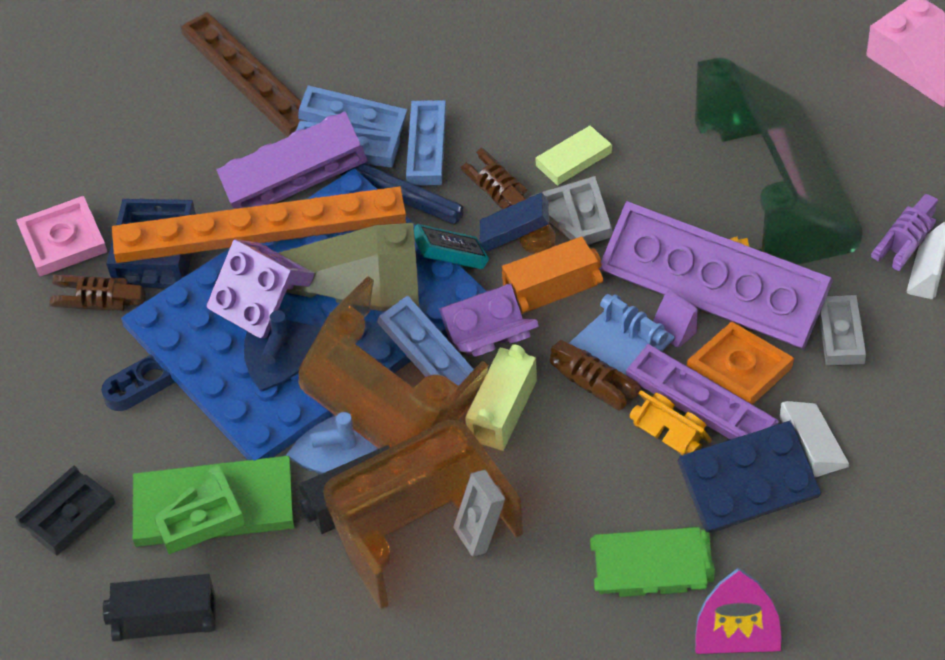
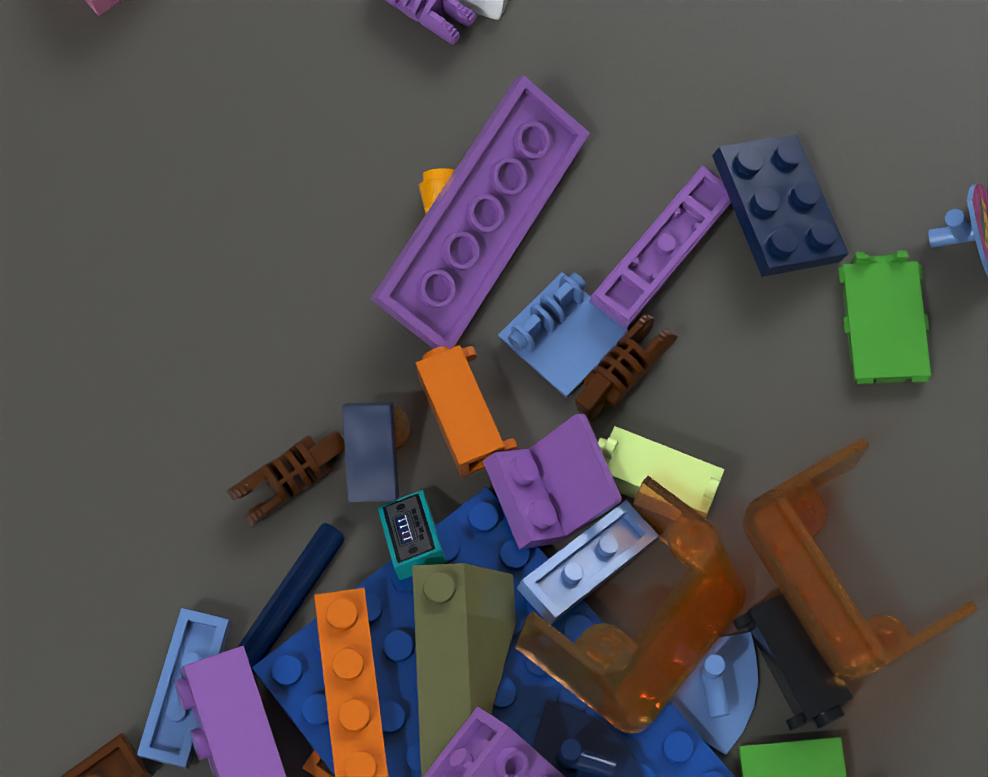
camera: 90 degrees left, 20 degrees up
(362, 113) = (132, 678): medium blue plate -> none
(426, 142) = (196, 571): medium blue plate -> none
(479, 513) = (853, 497): light grey plate -> none
(573, 155) = (239, 378): yellowish green tile -> none
(579, 211) = (347, 372): light grey wing -> none
(677, 317) = (538, 266): medium lavender slope -> none
(683, 430) = (683, 295): light orange hinge -> none
(741, 362) = (610, 202): orange plate -> none
(808, 211) = (199, 119): clear green windscreen -> none
(815, 437) = (698, 140): white slope -> none
(842, 331) = (573, 86): light grey plate -> none

